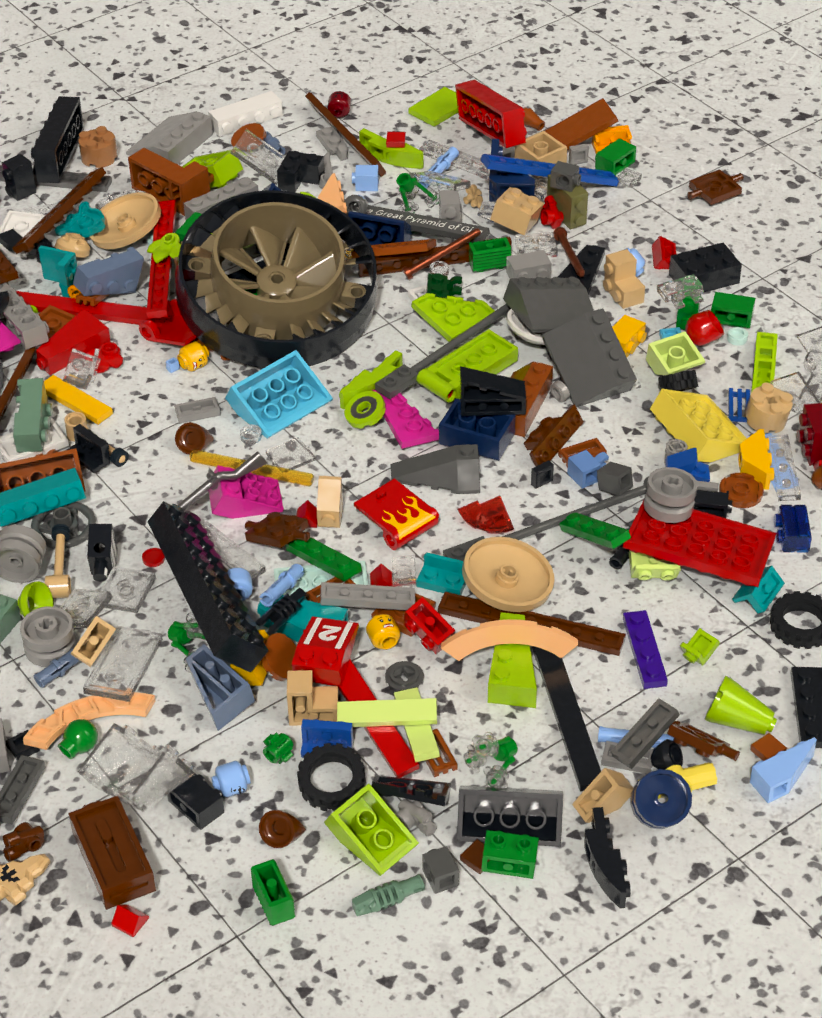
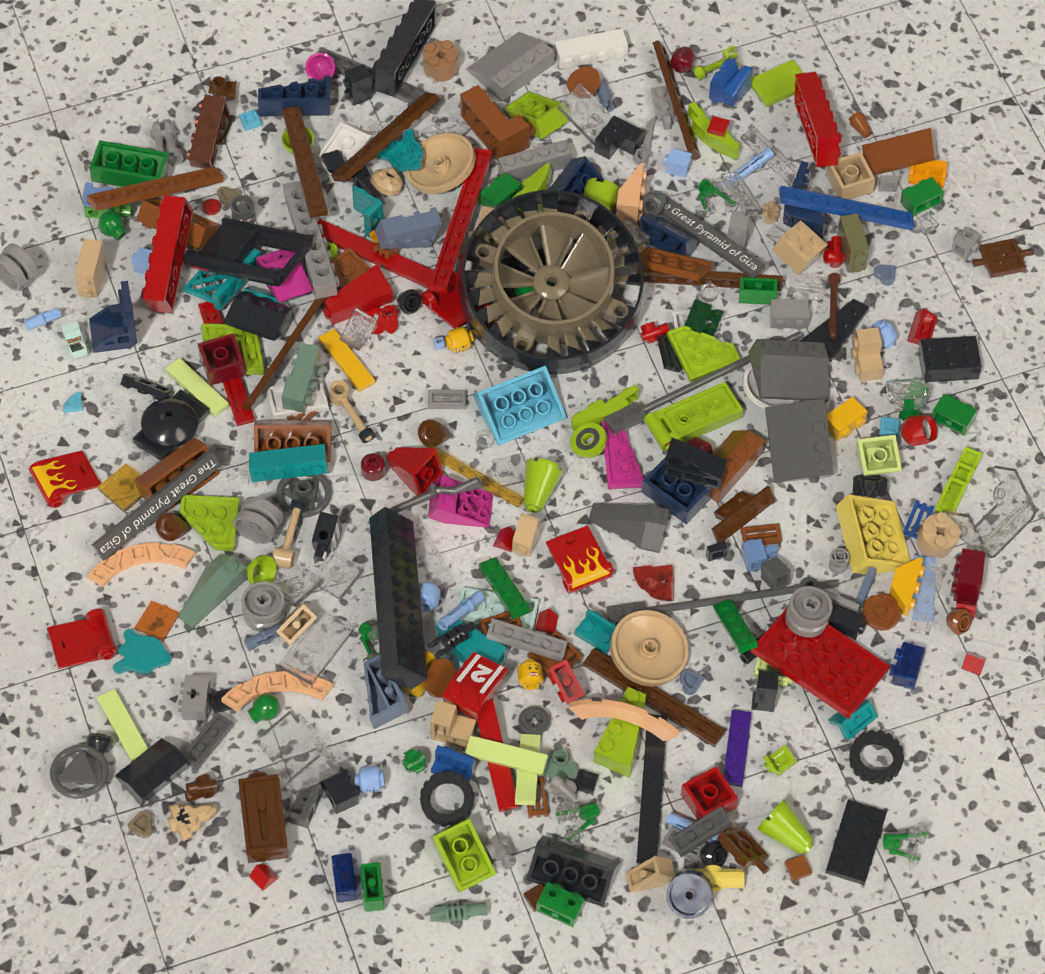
camera: 15 degrees right, 15 degrees up
(91, 449) = (343, 424): black bracket -> none
(128, 335) = (409, 301): none -> black cone
(135, 481) = (373, 467): none -> dark red head
(153, 557) = (365, 546): red piece -> none
(159, 827) = (305, 806): none -> dark grey hinge
(166, 246) = (464, 215): lime plate -> none
(182, 469) = (416, 467): none -> red slope
(233, 892) = (344, 877): none -> clear blue brick
(277, 530) = (474, 550): reddish brown plate -> none
(280, 828) = (394, 833): reddish brown piece -> none
(326, 450) = (539, 483): none -> lime cone
(382, 98) = (701, 71): none -> lime bar
(393, 109) = (730, 83): none -> blue piece
(396, 310) = (651, 332): none -> red plate
(403, 571) = (566, 620): clear slope -> none
(412, 789) = (506, 828): black wing -> none
(420, 324) = (668, 355): none -> black tile
(440, 253) = (712, 280): copper bar -> none
(440, 869) = (503, 902): dark grey brick -> none
(452, 716) = (563, 769): none -> sand green plate
(460, 733) = (561, 789): none -> light grey plate
(487, 722) = (586, 781): none -> black tile
(559, 391) = (764, 464): light grey tile -> none
(565, 176) = (852, 227): dark grey brick -> none
(565, 598) = (691, 681): none -> sand blue tile
(605, 861) = (630, 929): black slope -> none
(608, 221) = (885, 273): none -> sand blue tile
(634, 694) = (708, 793): none -> red brick
(656, 581) = (766, 691): none -> black window
(675, 180) = (965, 243): none -> light grey brick
(688, 461) = (841, 578): blue slope -> none
(715, 465) = (866, 586): none -> sand blue tile
(737, 336) = (949, 442): light aqua tile -> none
(780, 773) = (795, 894): light blue slope -> none

